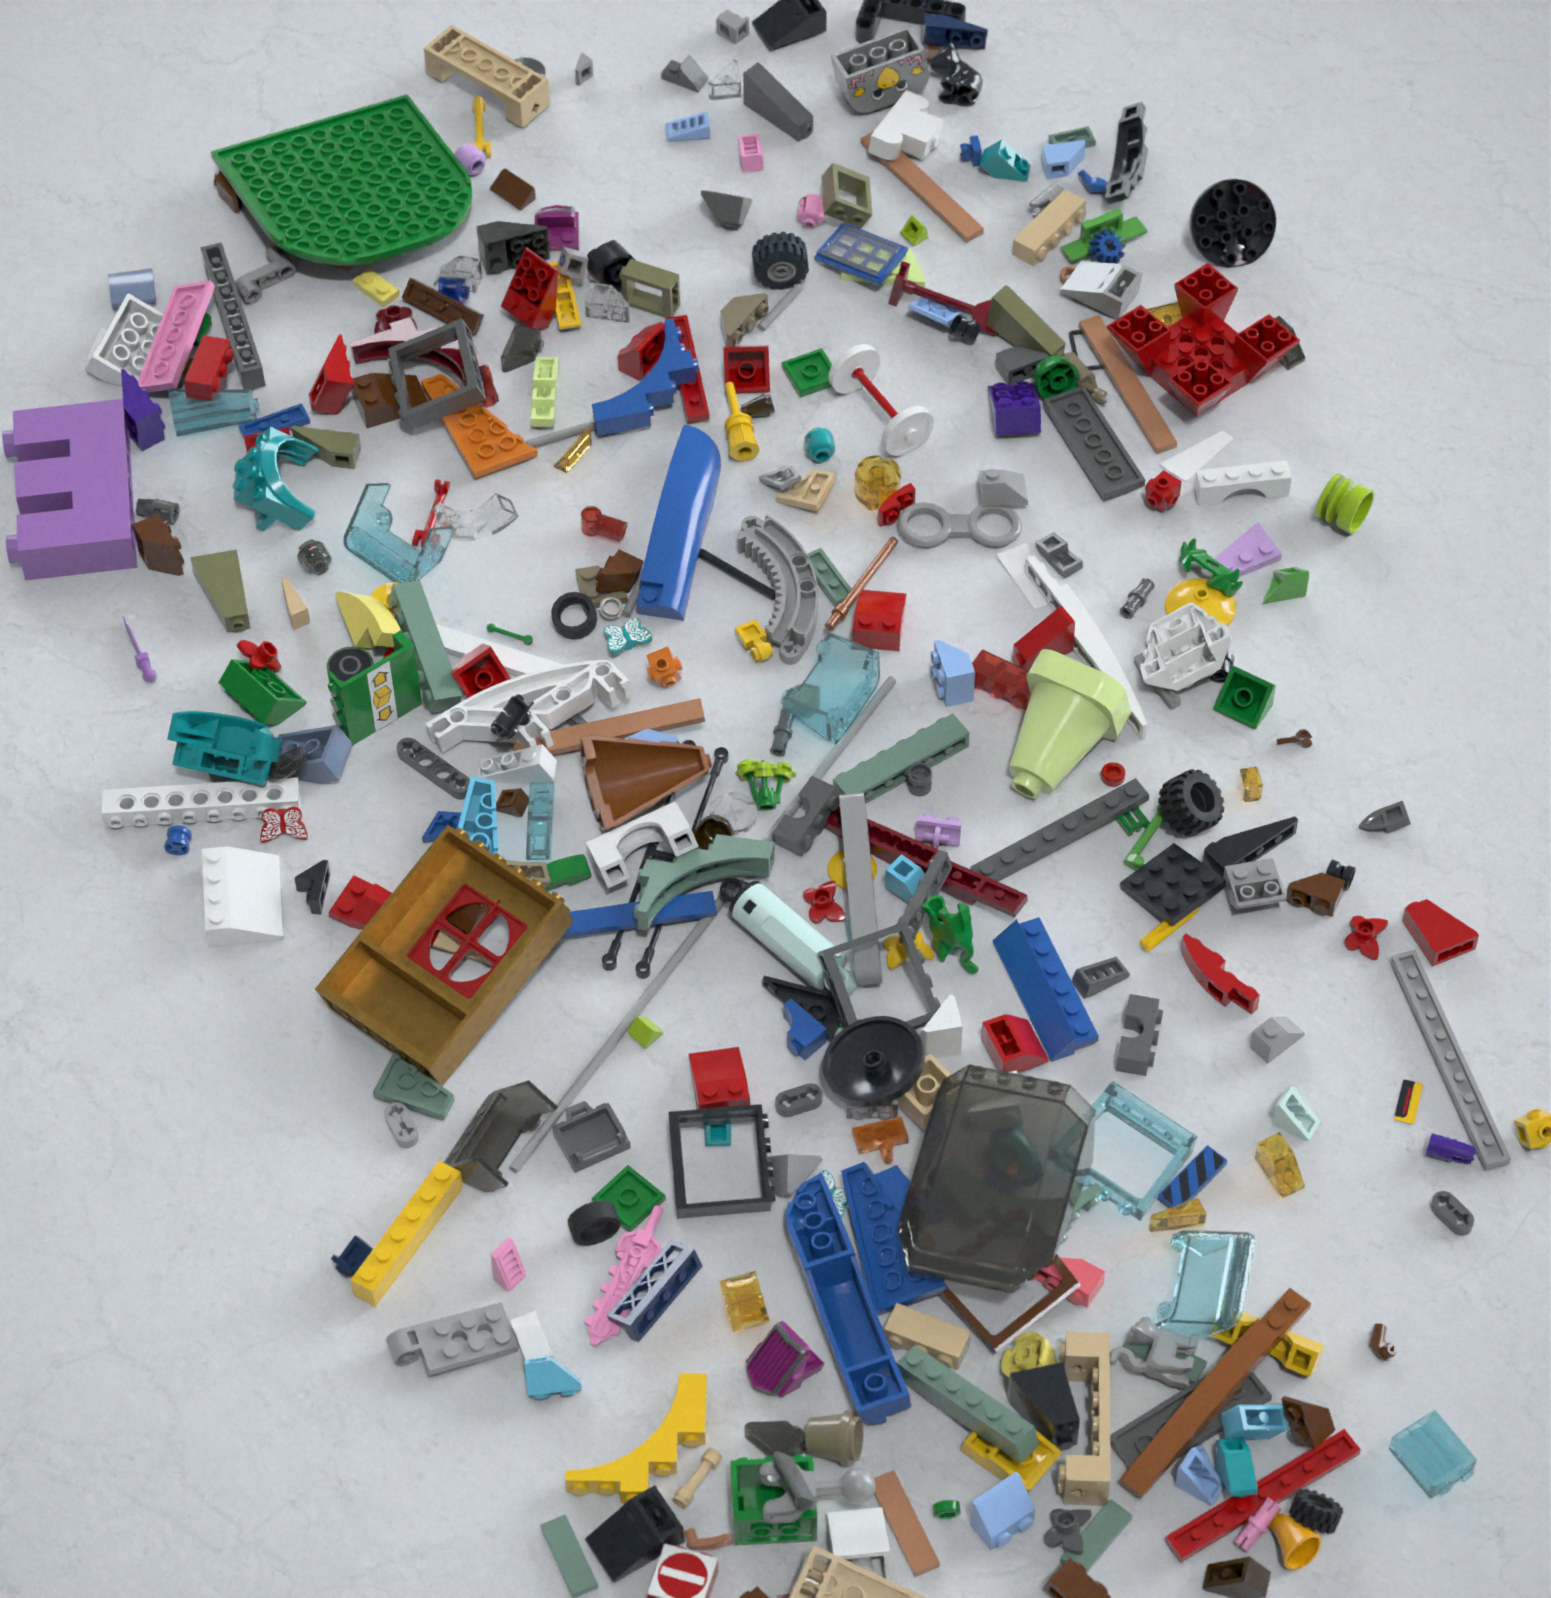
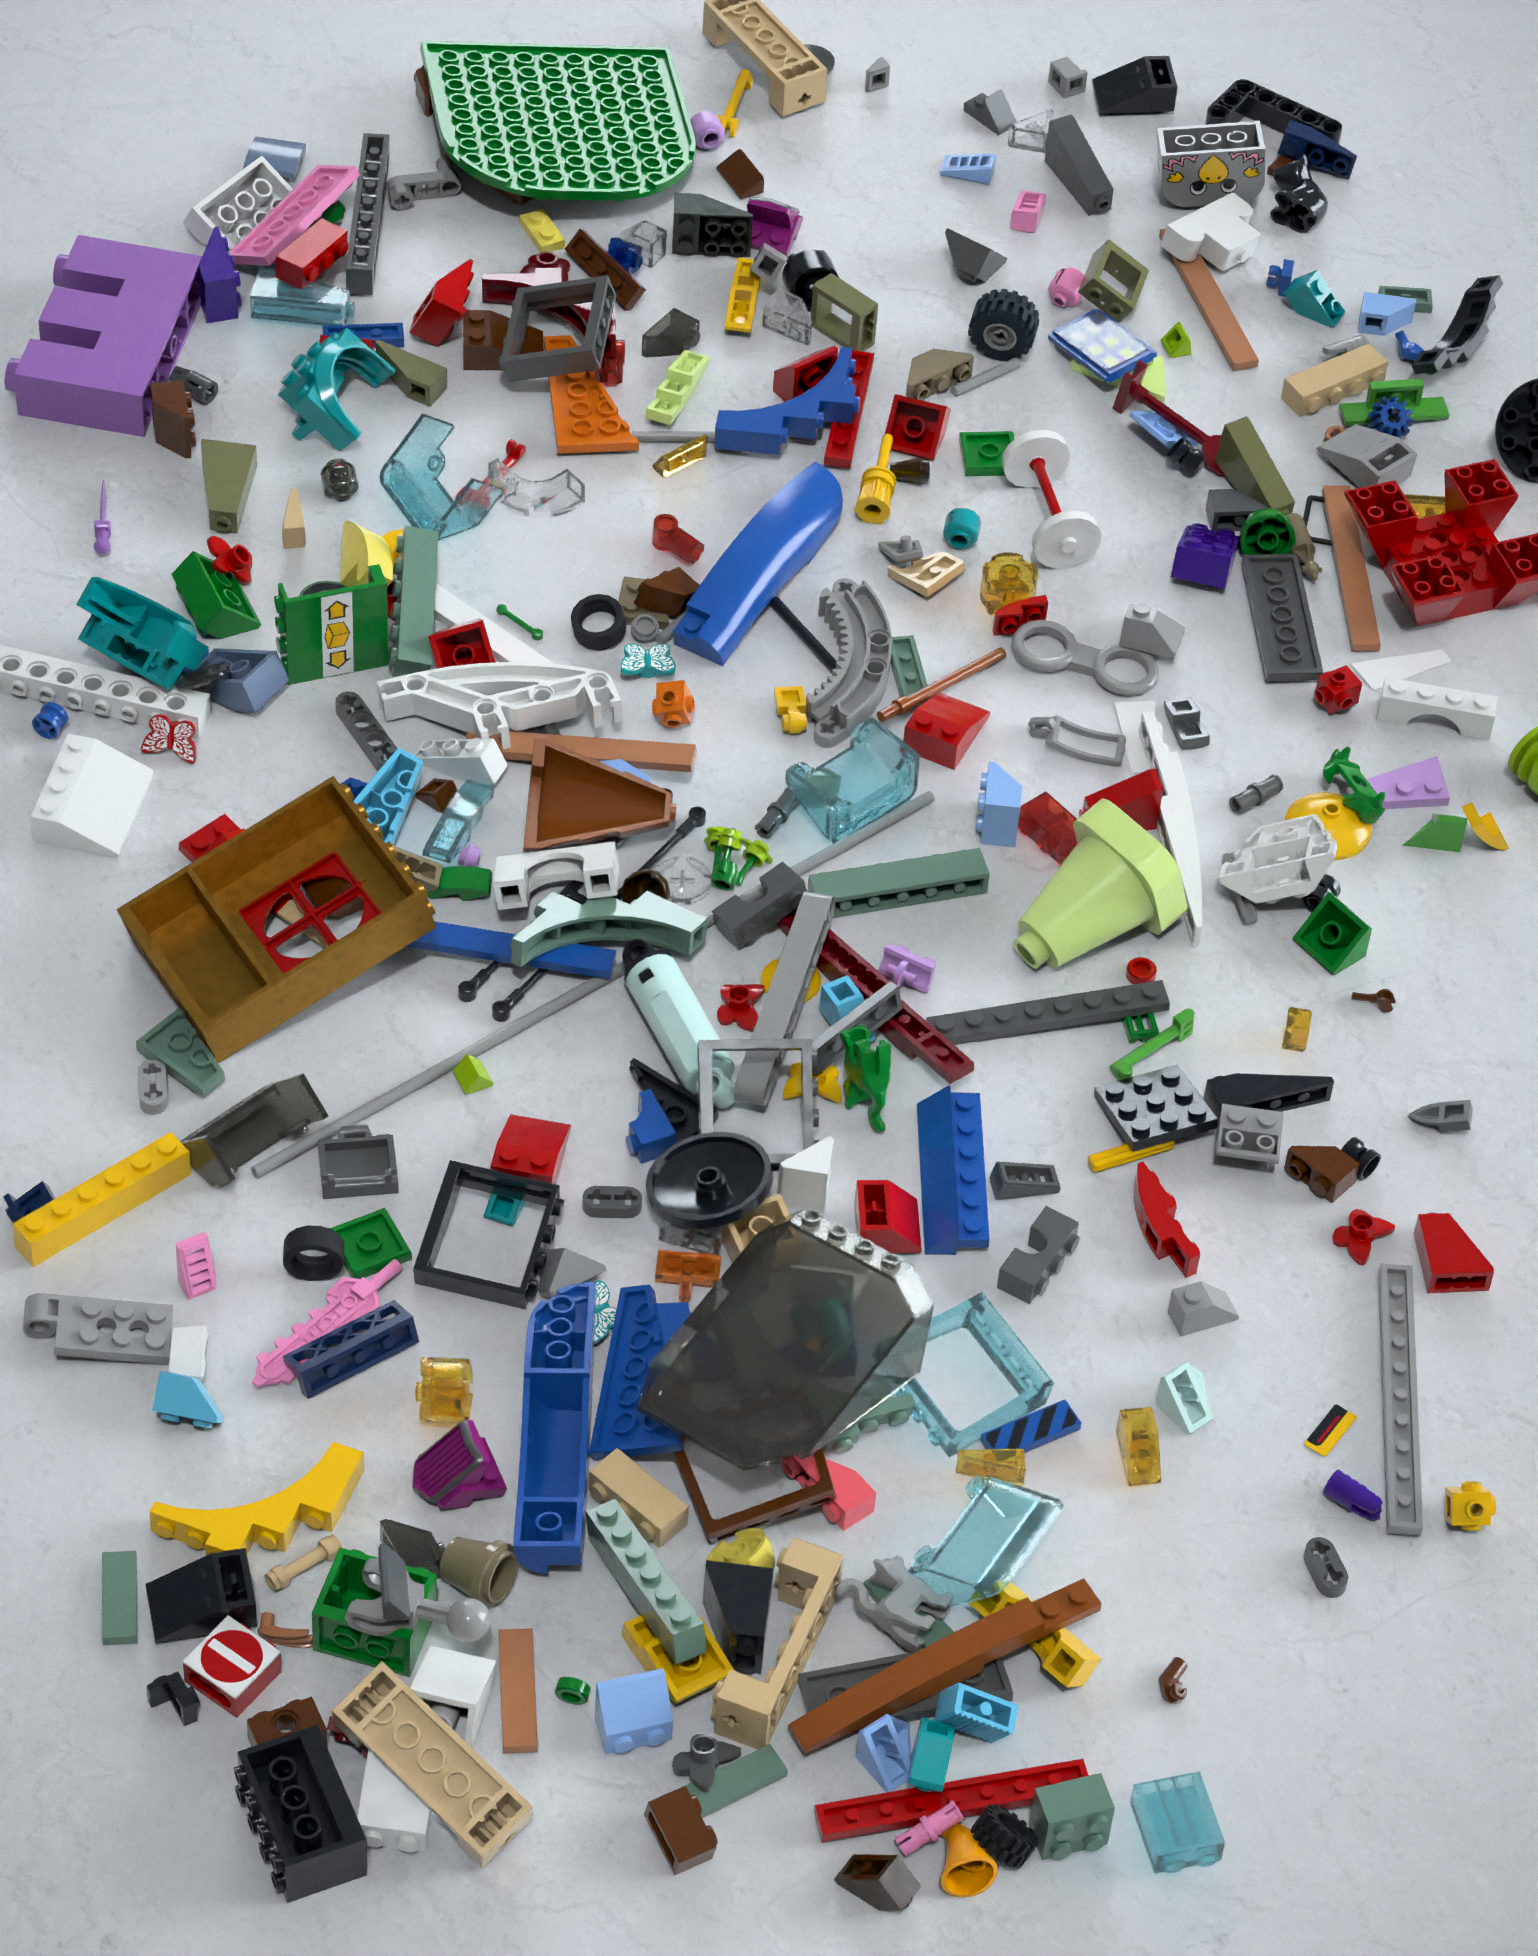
camera: 15 degrees right, 5 degrees down
(314, 883) = (177, 811): black slope -> none
(506, 725) = (479, 694): black hinge -> none
(532, 291) = (707, 278): red slope -> none
(561, 848) = (469, 855): none -> lavender plate
(919, 779) = (911, 908): dark grey wheel -> none
(961, 589) = (1052, 732): none -> light grey sword
(1191, 802) = (1196, 1029): black tyre -> none
(1308, 1422) = (1040, 1734): reddish brown slope -> none
(1321, 571) = (1485, 827): none -> yellow slope
(1359, 1478) = (1072, 1816): none -> sand green brick

